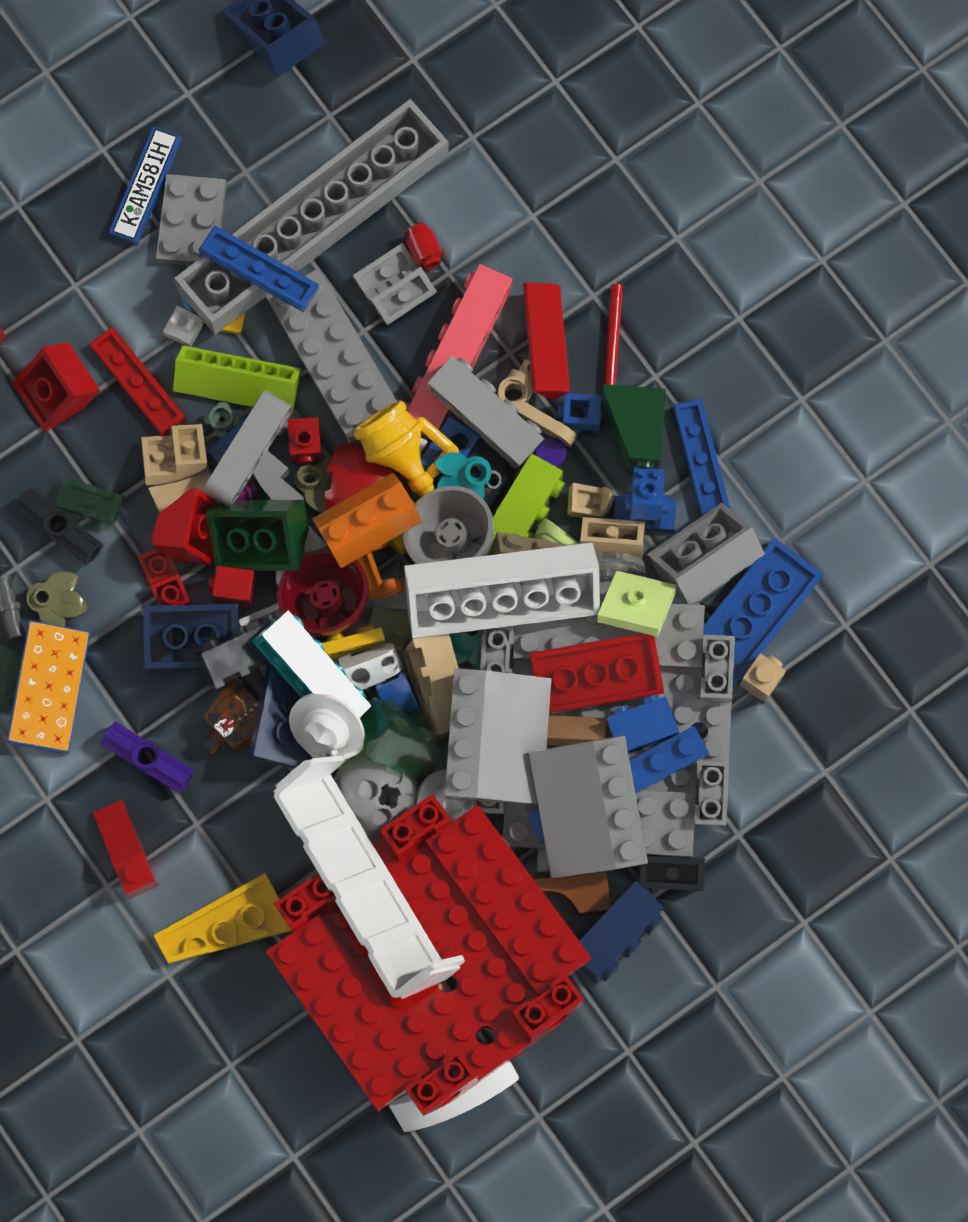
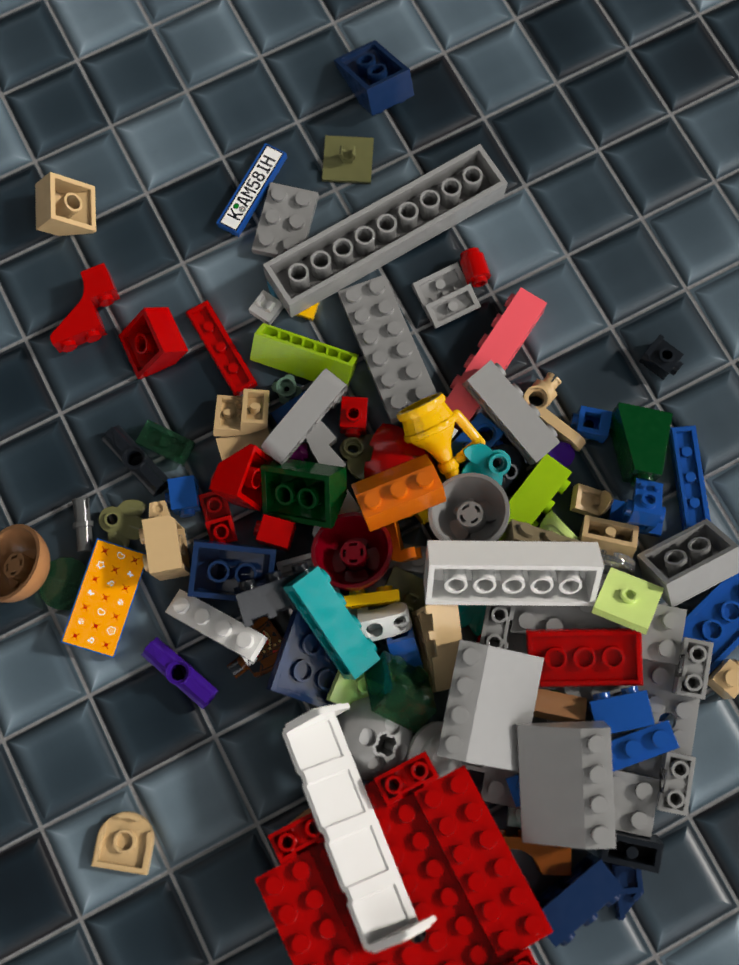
camera: 10 degrees right, 0 degrees up
(110, 615) = (164, 544): none -> tan hinge
(114, 952) = (125, 844): none -> tan tile
(120, 559) = (183, 496): none -> blue brick
(125, 849) = (148, 753): red slope -> none
(181, 698) = (216, 625): none -> white plate
(225, 923) = (225, 833): yellow wing -> none
(255, 133) = (347, 159): none -> olive piece
(258, 268) = (335, 265): blue tile -> none
(326, 726) = (338, 674): white hat -> none
(546, 339) = (570, 358): red slope -> none
(613, 334) = (624, 363): red piece -> none
(644, 328) = (656, 363): none -> black brick
(677, 917) = (633, 888): none -> dark blue tile

